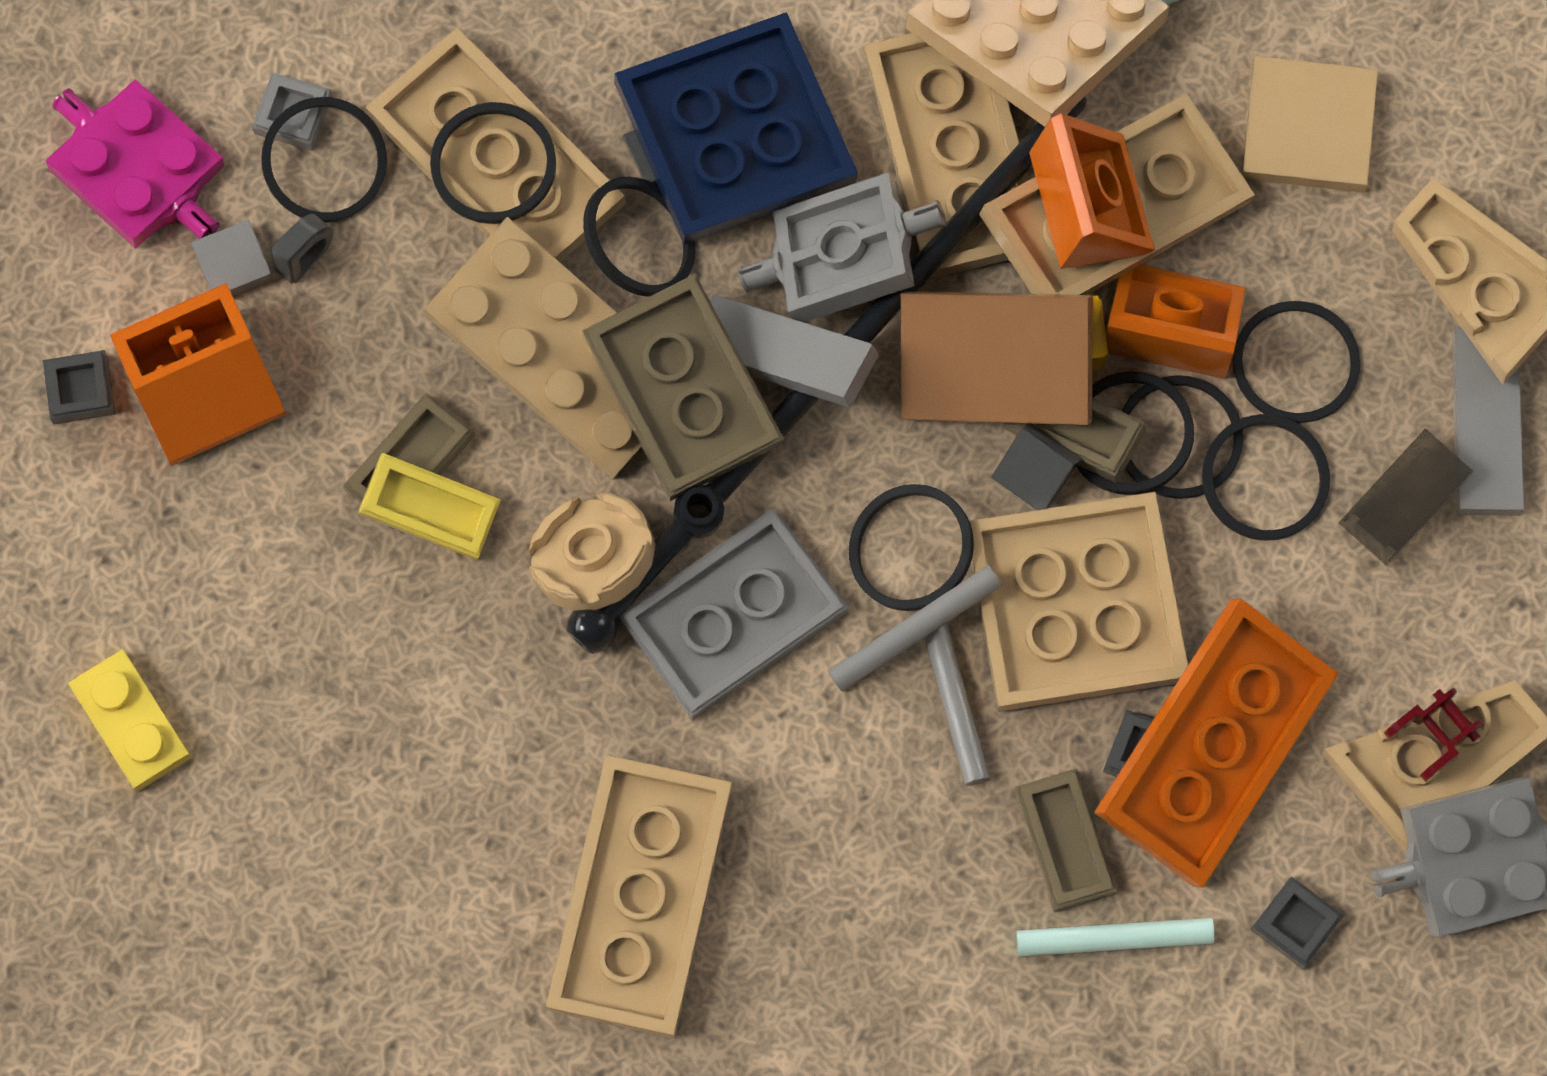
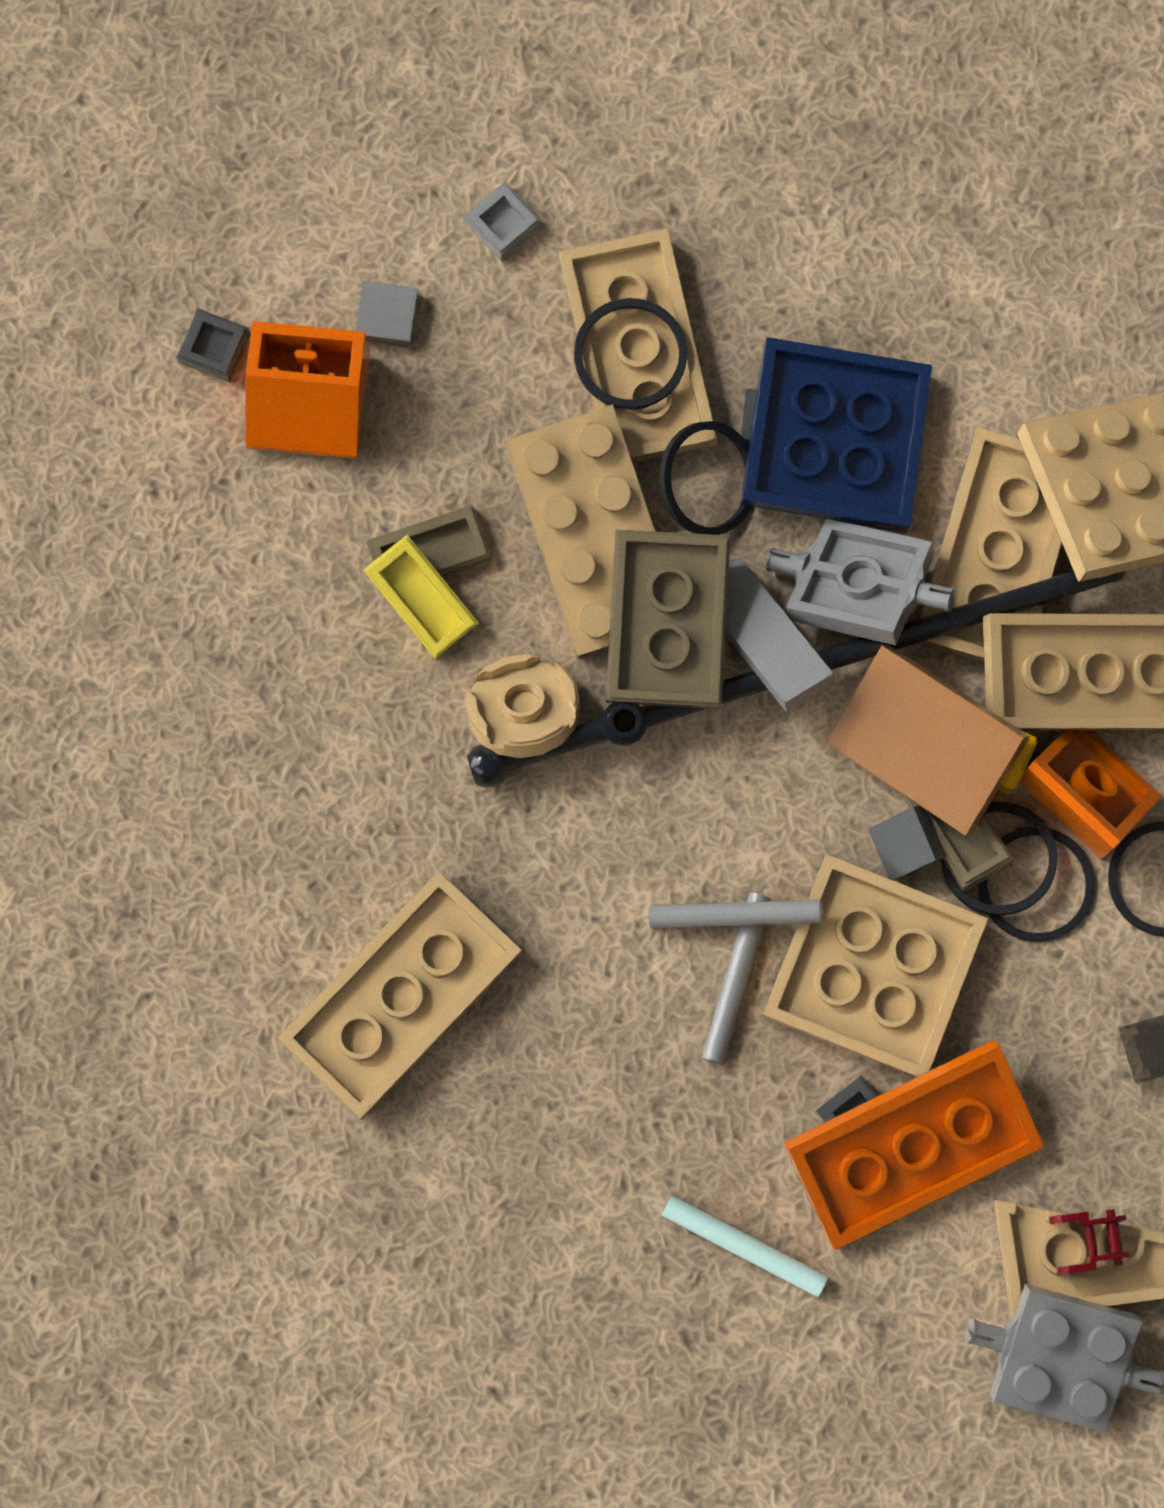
camera: 30 degrees right, 5 degrees up
(129, 720) = (99, 628): light yellow plate -> none
(135, 164) = (358, 194): dark pink plate -> none
(301, 247) = (445, 334): dark grey tile -> none
(337, 104) = (554, 267): black piece -> none
(733, 613) = (604, 817): light grey tile -> none
(871, 510) = (742, 808): black piece -> none
(1065, 840) = (752, 1148): dark tan tile -> none
(1089, 193) = (1078, 653): orange slope -> none
(1297, 922) = (892, 1320): dark grey tile -> none
(1301, 433) = (1136, 947): black piece -> none

